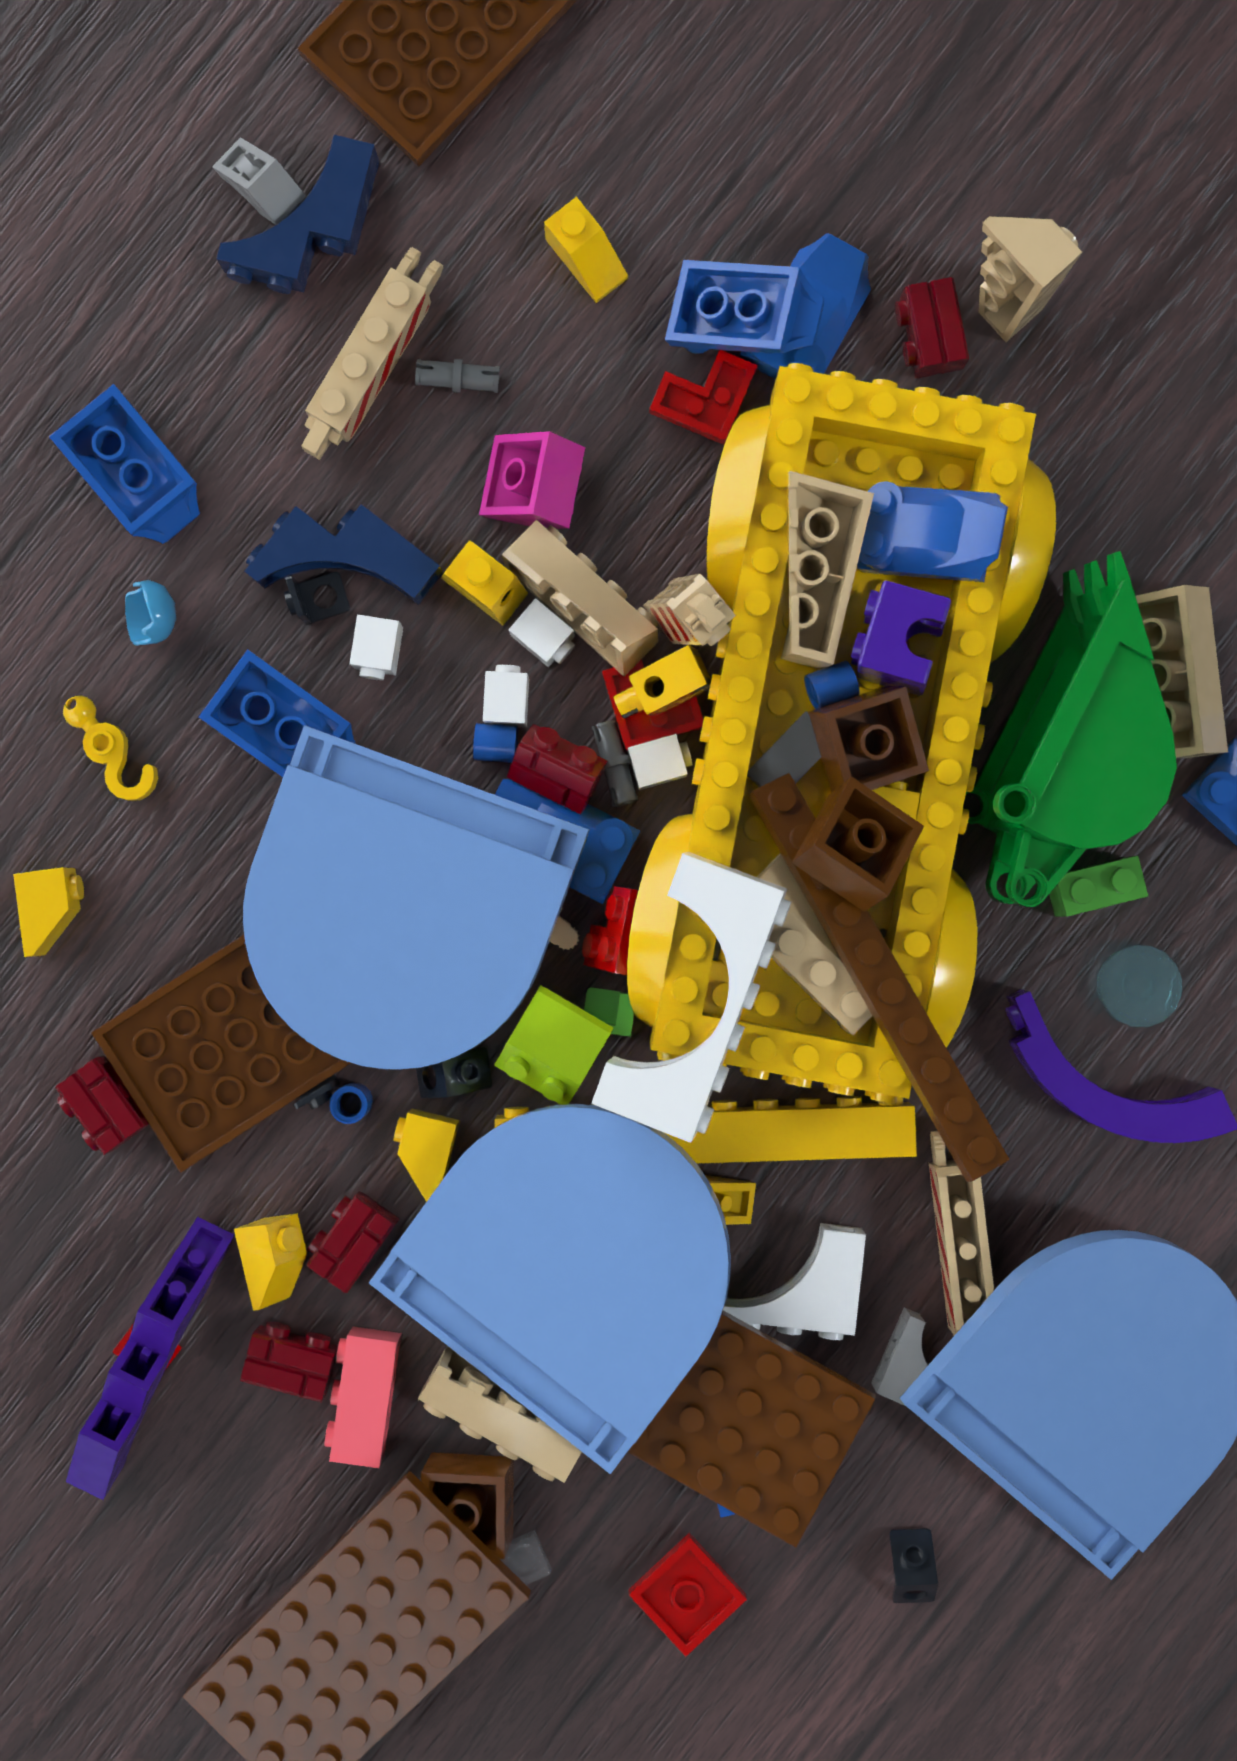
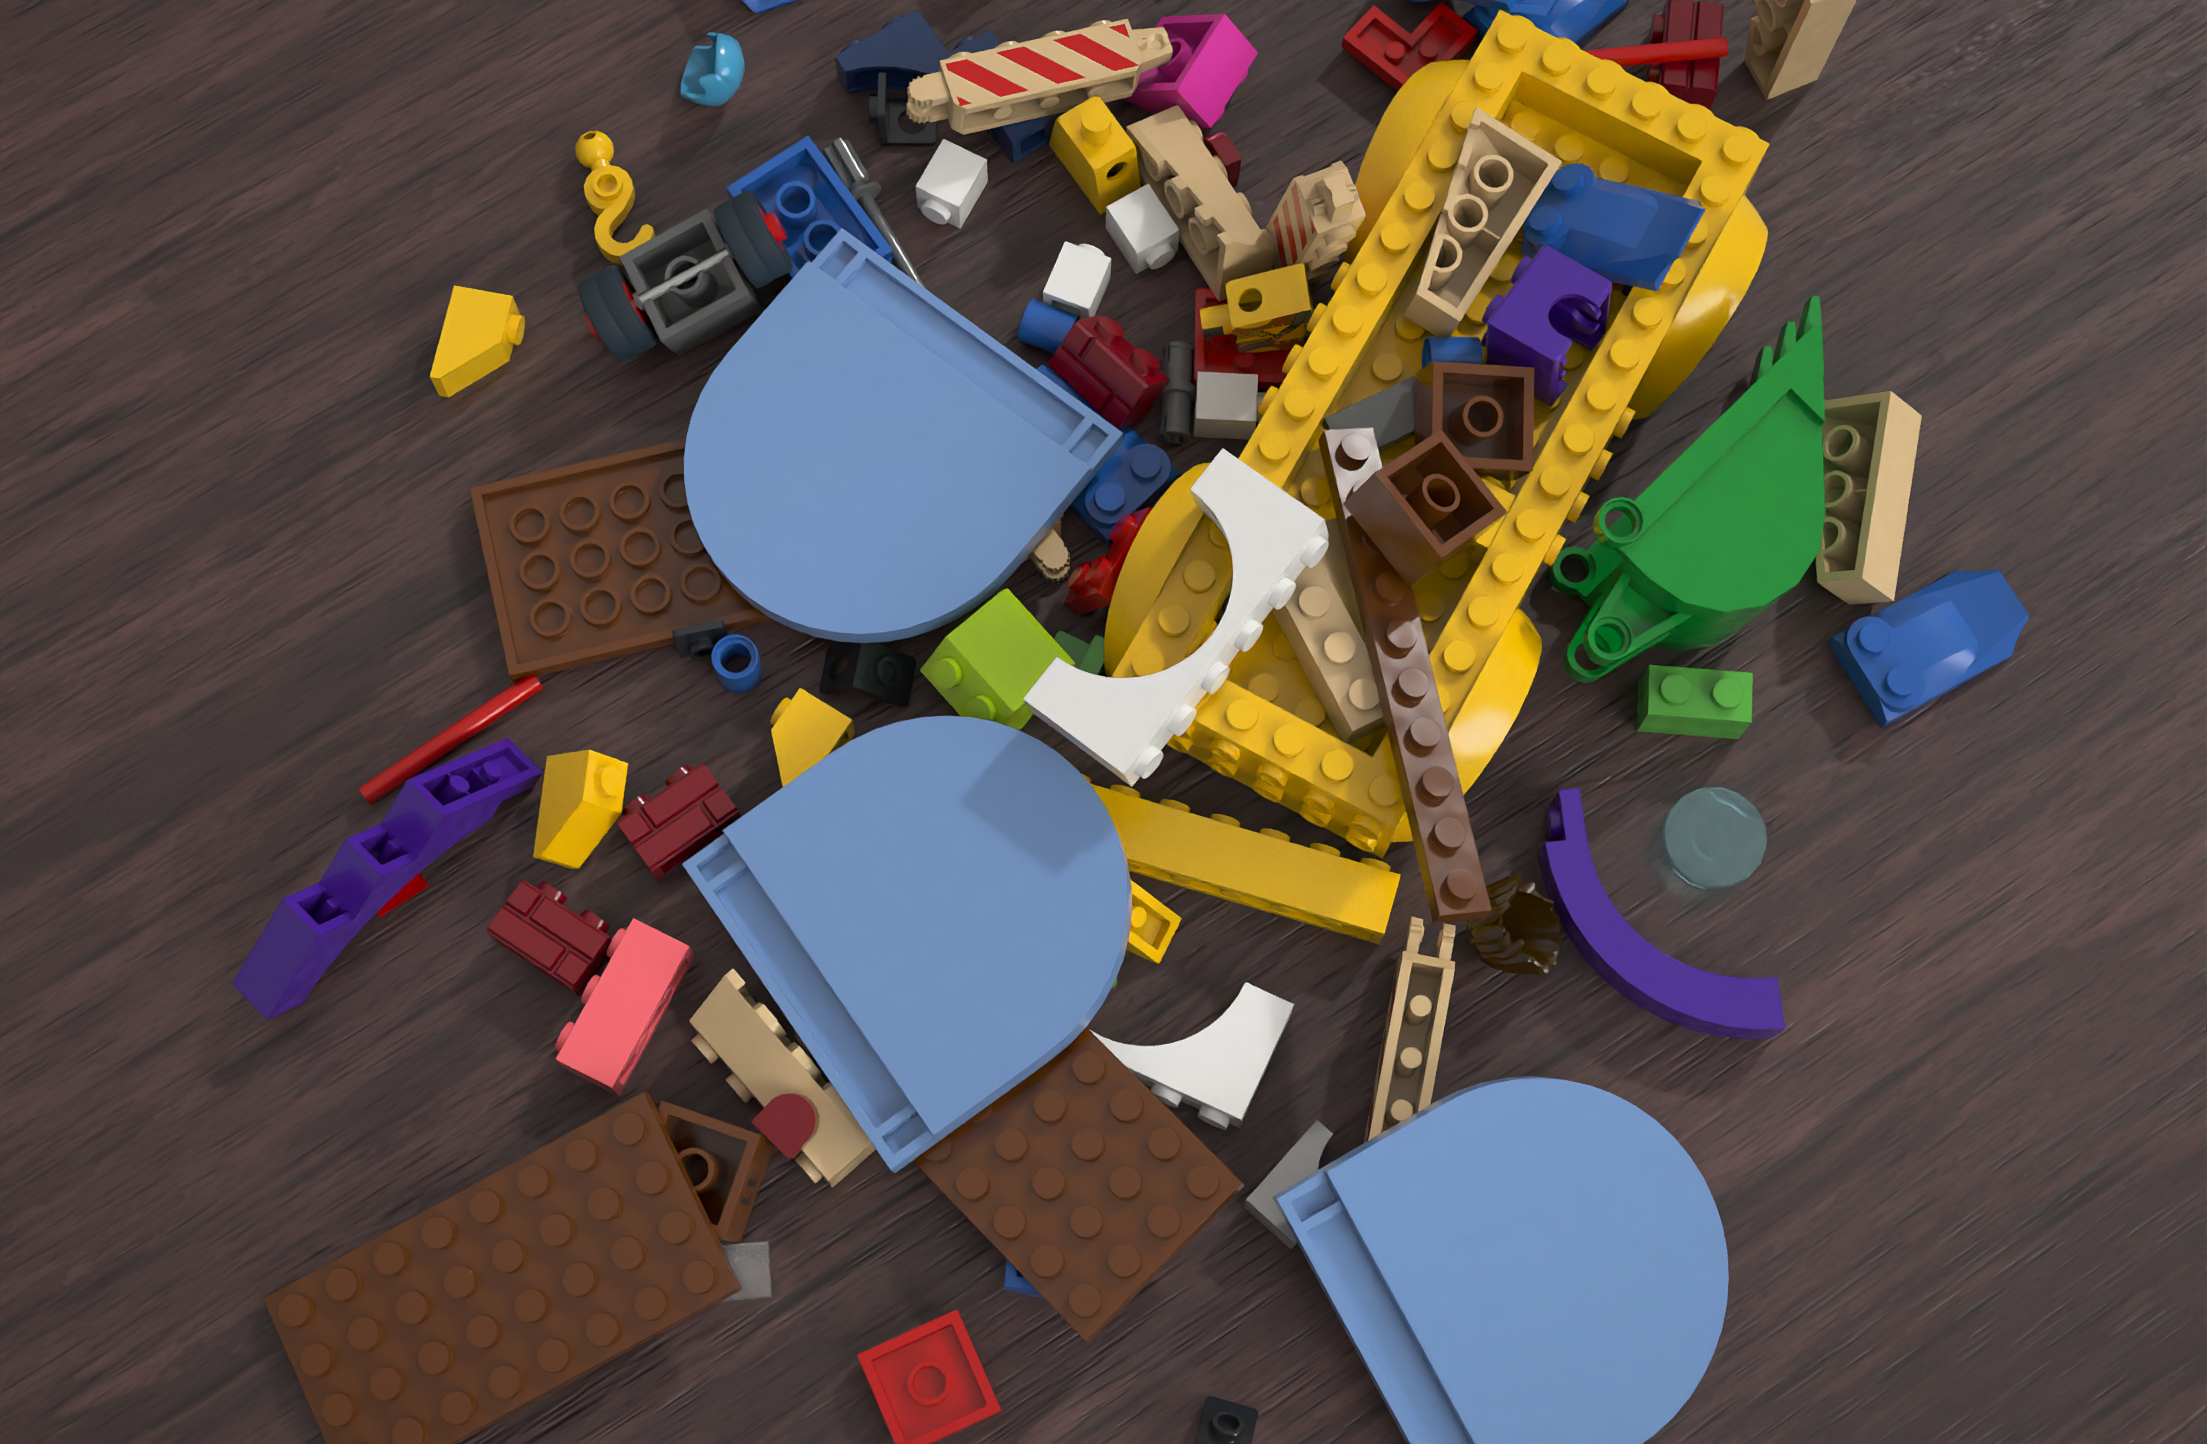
camera: 15 degrees right, 15 degrees down
(101, 1105) = (449, 572): dark red brick -> none
(153, 1231) = (450, 738): none -> red bar
(196, 810) = (688, 280): none -> brick
(305, 673) = (854, 176): none -> dark grey piece
(417, 538) = (1037, 76): none -> tan hinge
(520, 1455) = (789, 1122): none -> dark red tile
(580, 542) = (1221, 146): none -> dark red tile
(905, 345) = (1664, 52): none -> red bar
(1016, 1114) = (1519, 931): none -> dark brown hair

